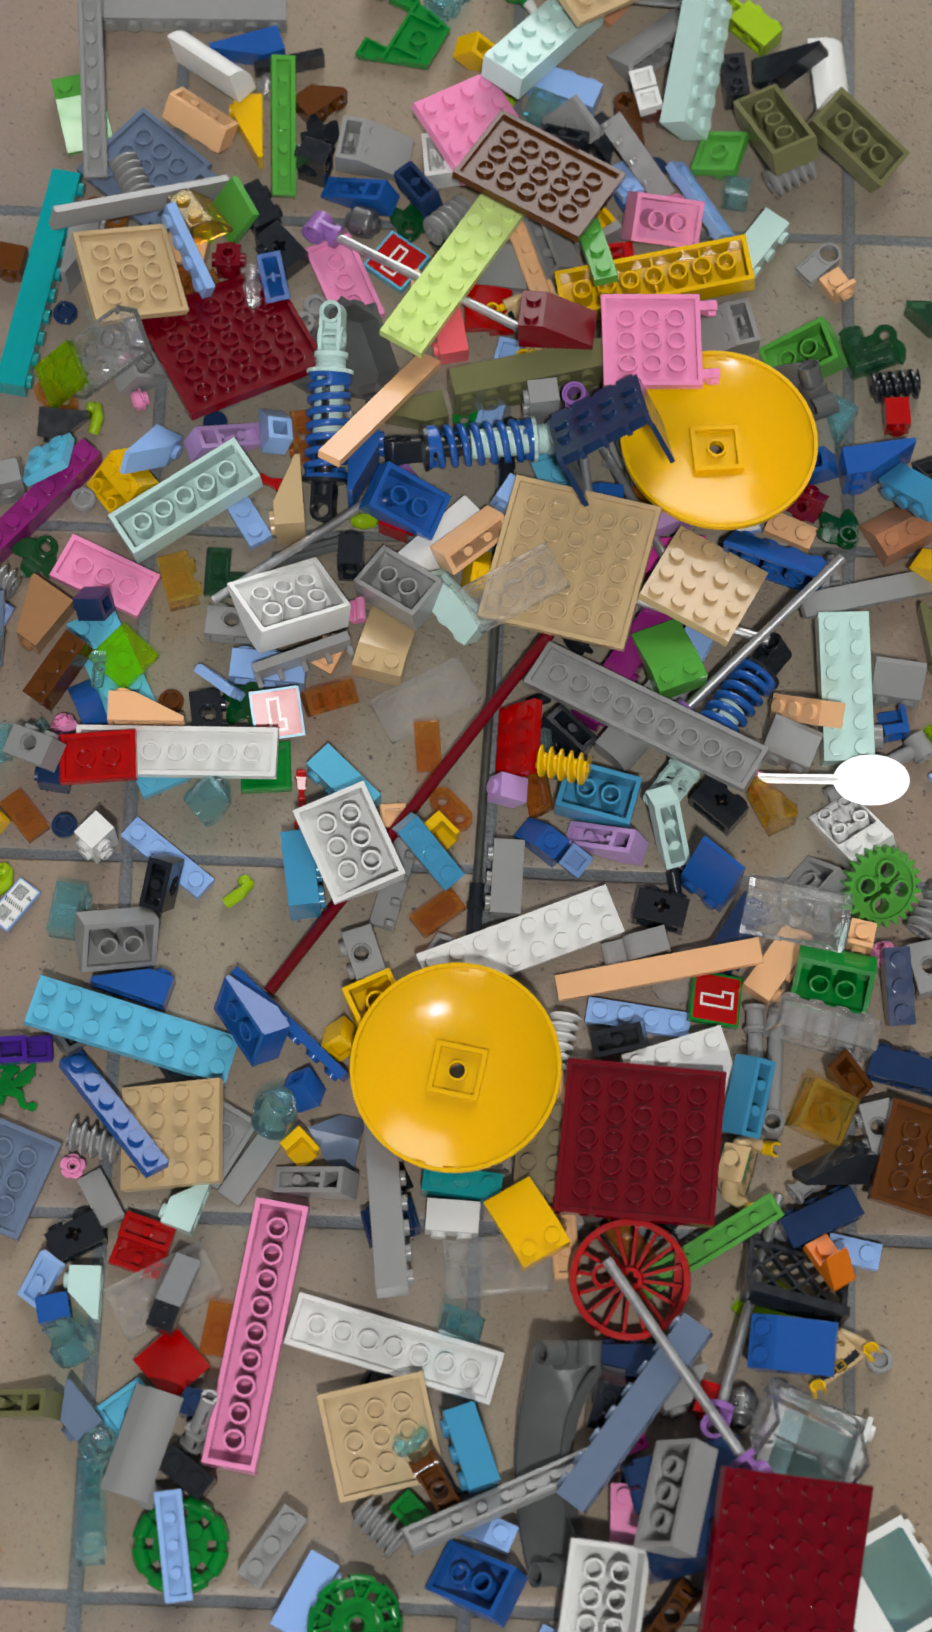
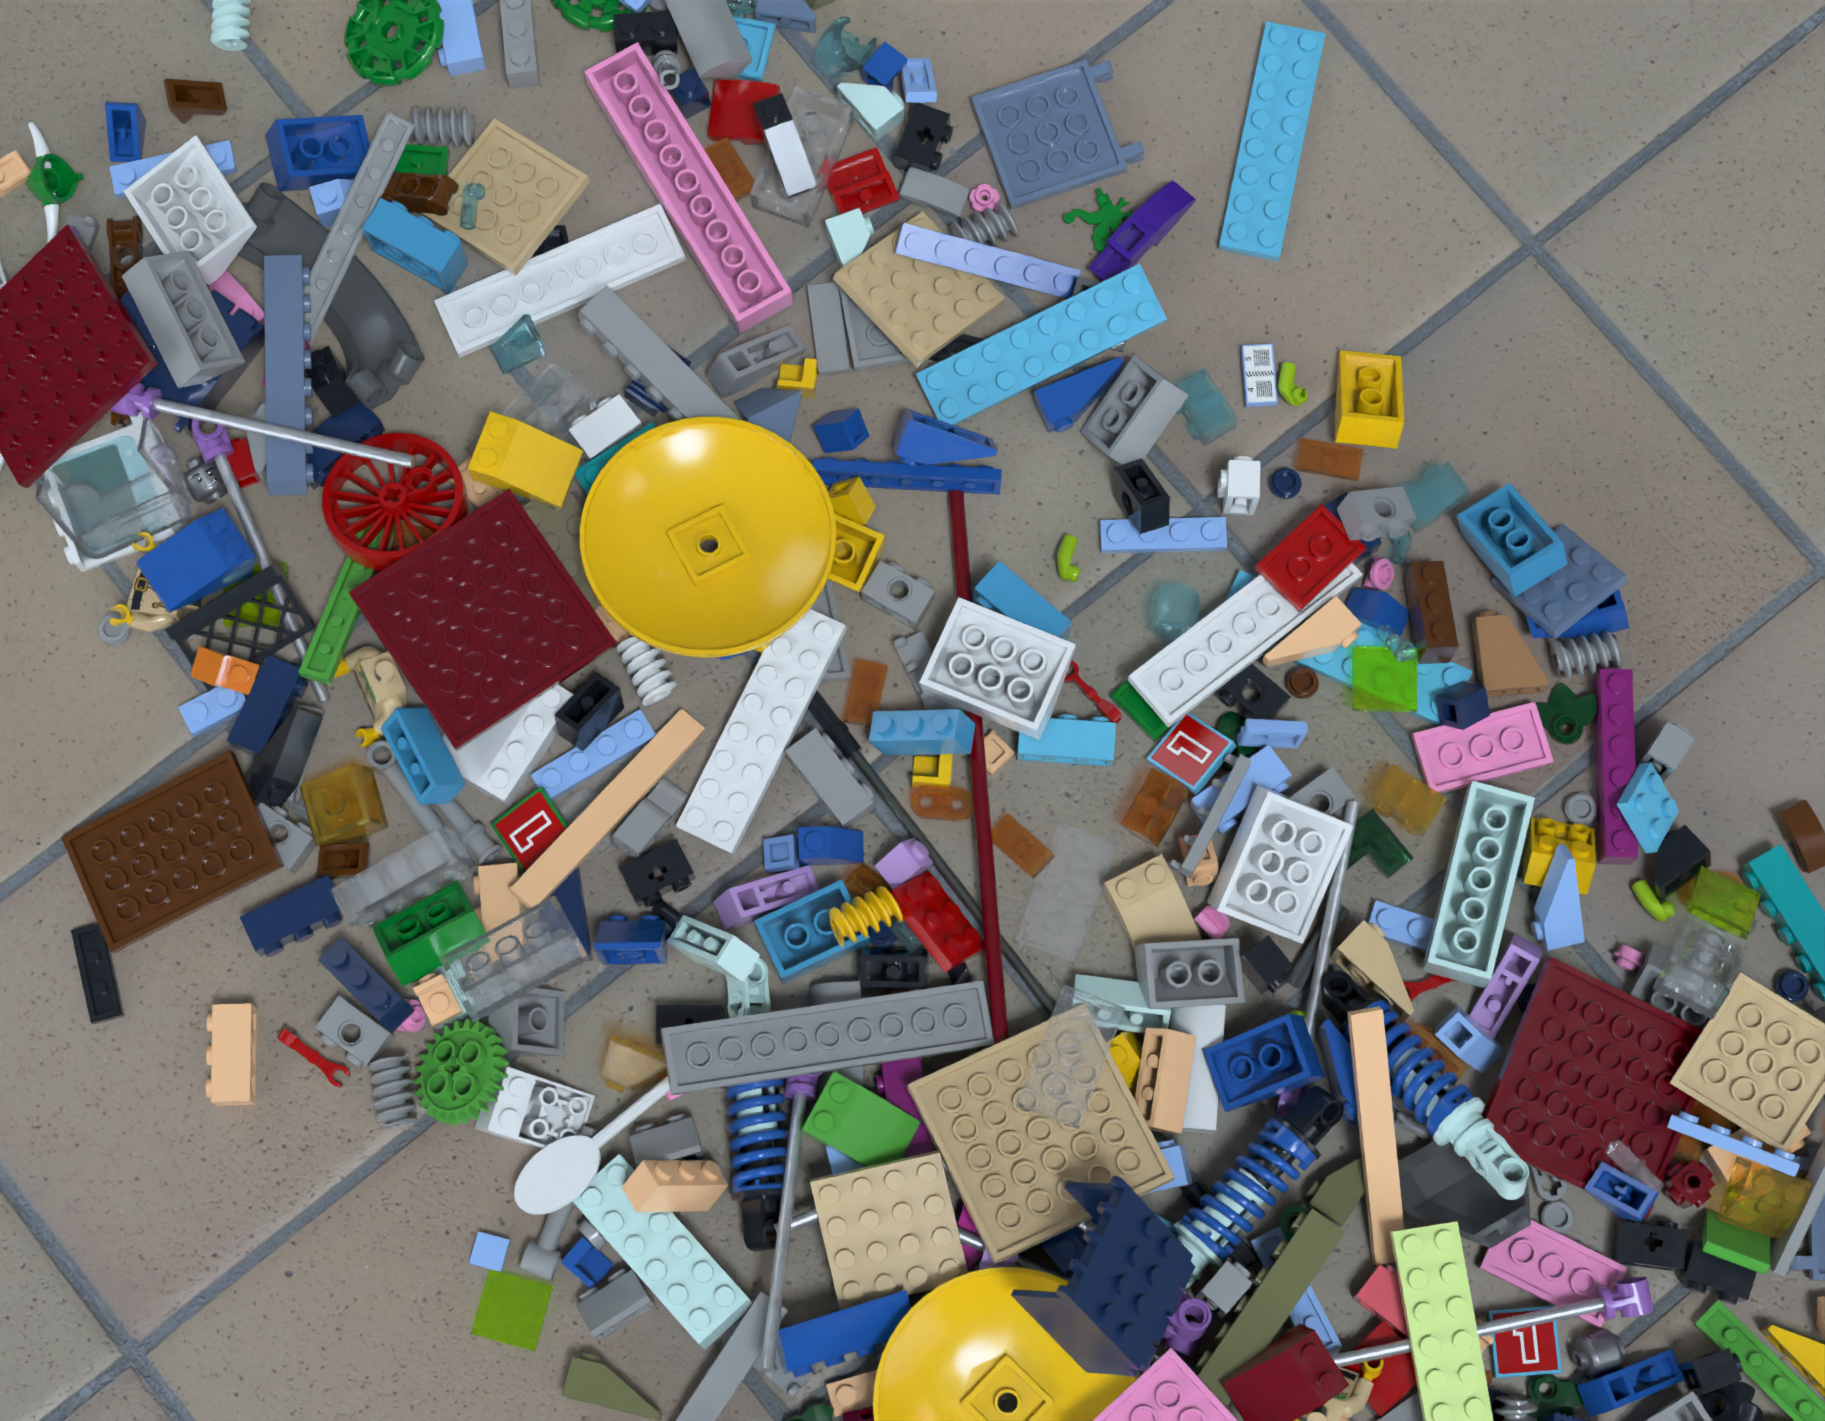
camera: 140 degrees right, 5 degrees up
(274, 1113) = (843, 379): clear light blue piece -> none

